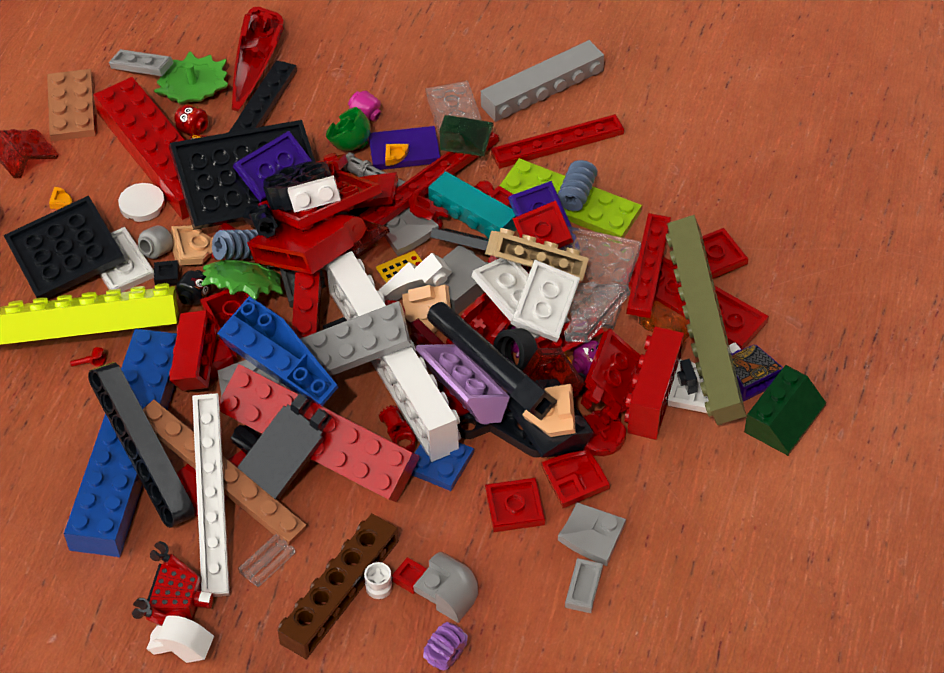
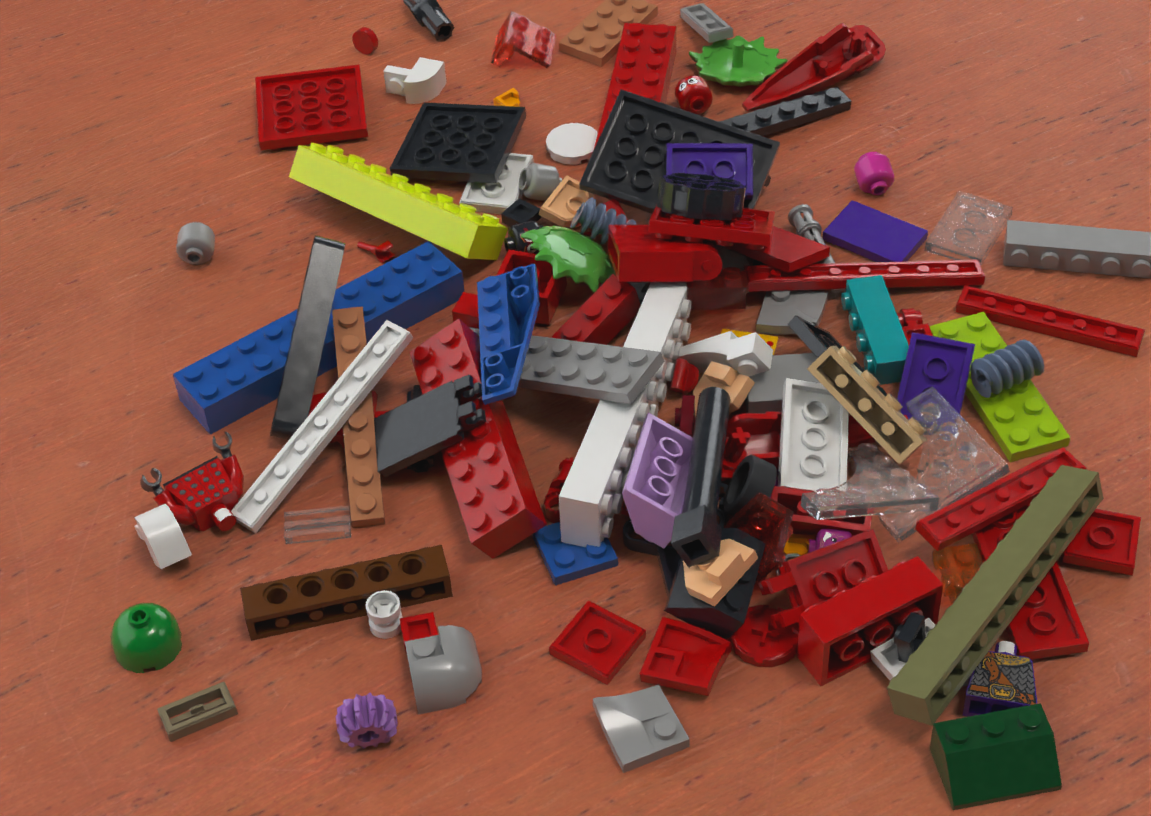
camera: 45 degrees right, 5 degrees down
(193, 350) = (449, 289): red brick -> none
(261, 219) = (634, 210): black piece -> none
(314, 194) = (694, 205): white plate -> none
(335, 162) = (756, 202): red plate -> none
(350, 131) = (830, 186): green cylinder -> none
(395, 153) = (855, 233): light orange tile -> none
(425, 208) = (822, 298): red plate -> none
(465, 135) = (941, 251): clear green slope -> none
(544, 224) = (916, 385): red plate -> none
(545, 301) = (826, 452): white tile -> none
(584, 585) = (574, 773): light grey tile -> none

